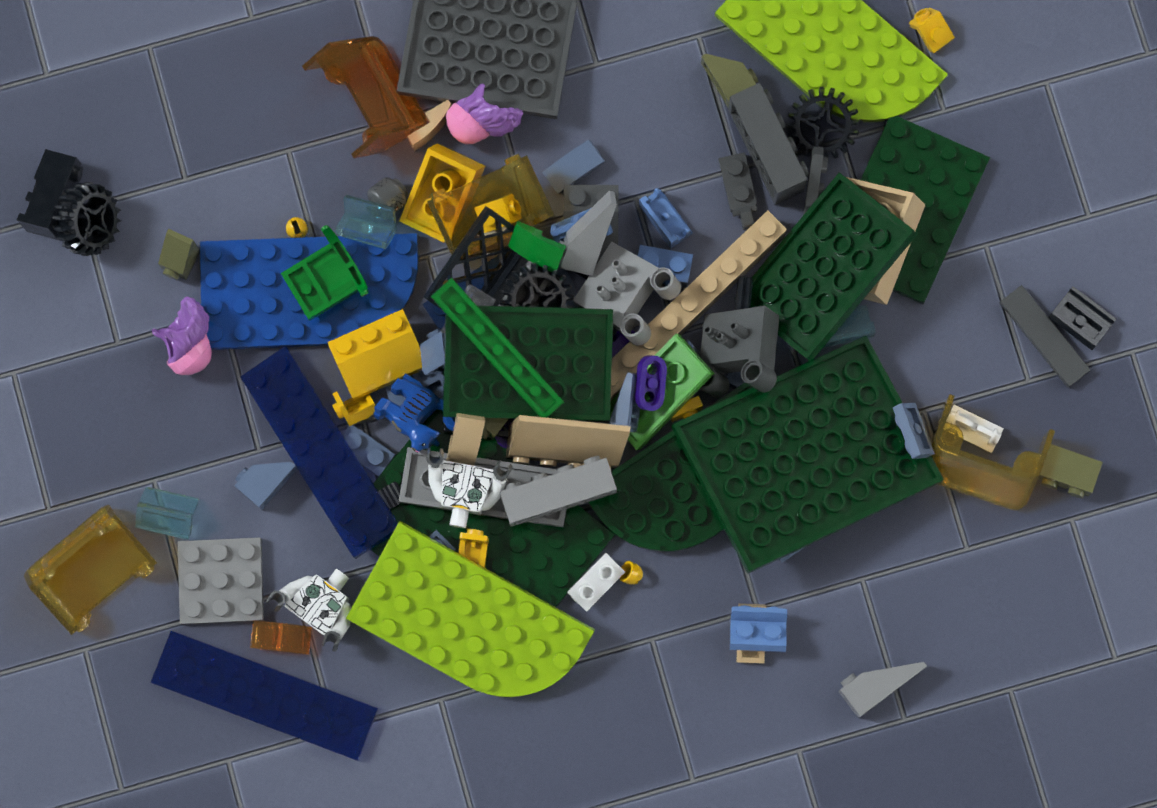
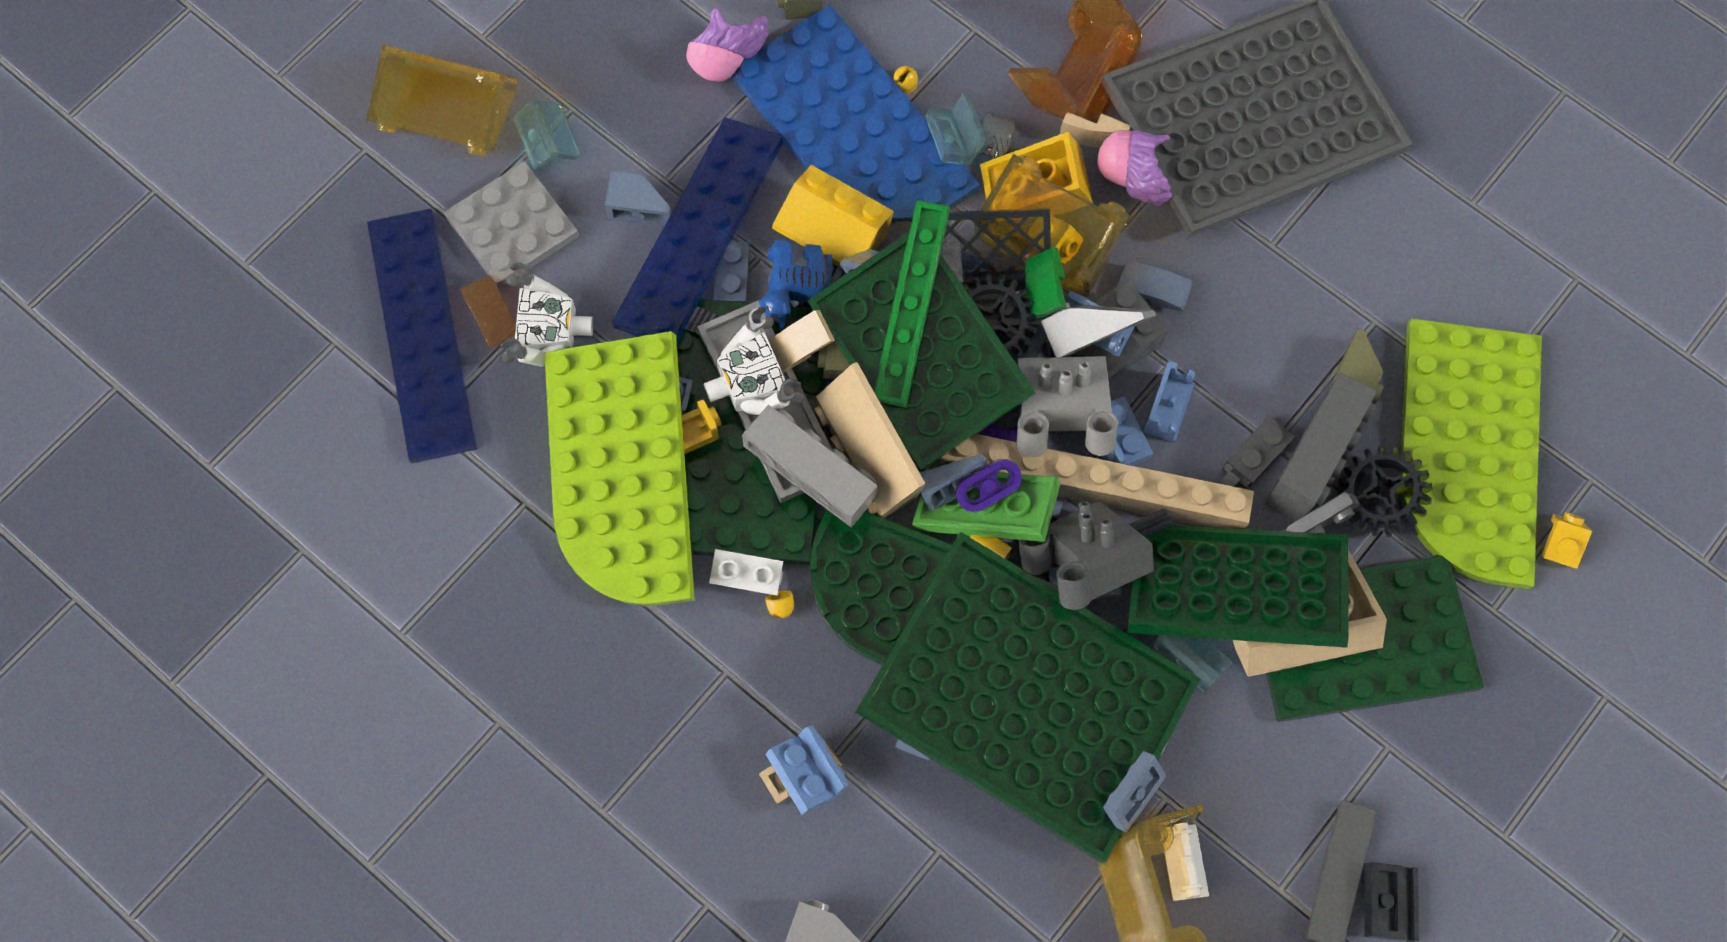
camera: 50 degrees right, 10 degrees down
(325, 277) = (874, 123): green piece -> none
(354, 410) = (759, 232): yellow bracket -> none

